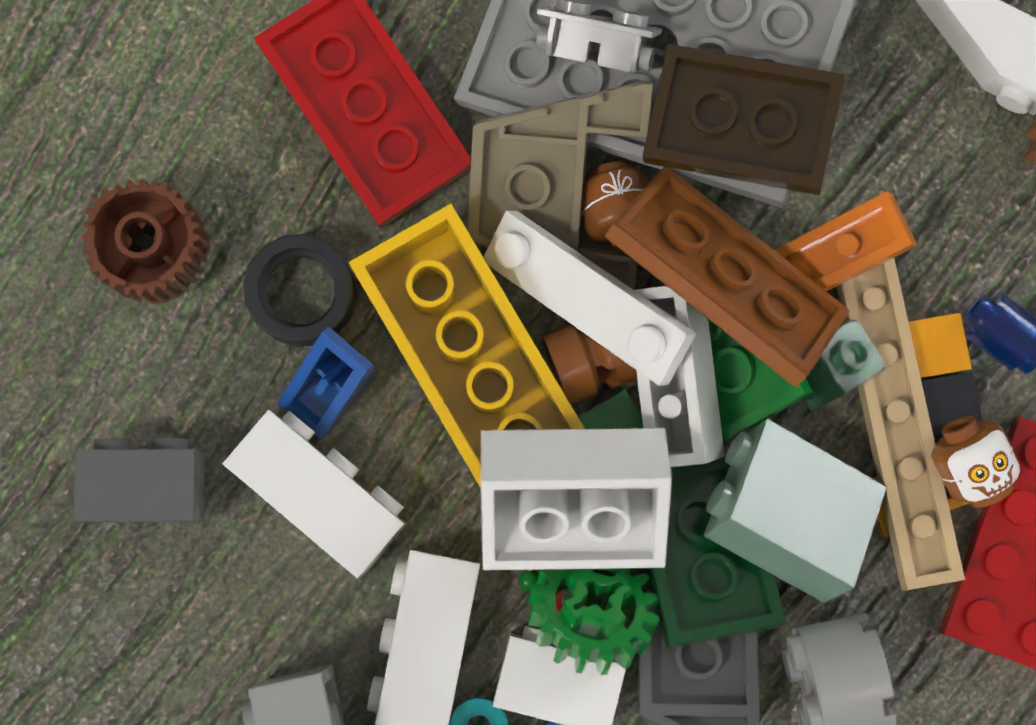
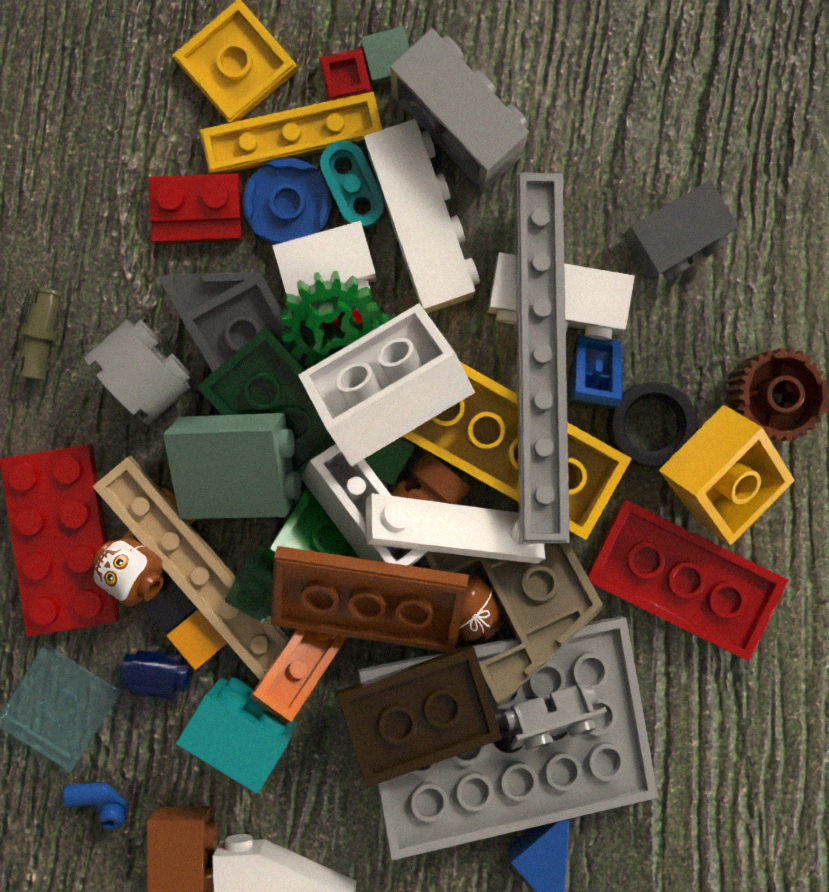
camera: 155 degrees right, 5 degrees up
(253, 186) = (727, 474): none -> yellow brick
(381, 432) = (541, 359): none -> light grey tile
(953, 213) = (236, 734): none -> teal brick

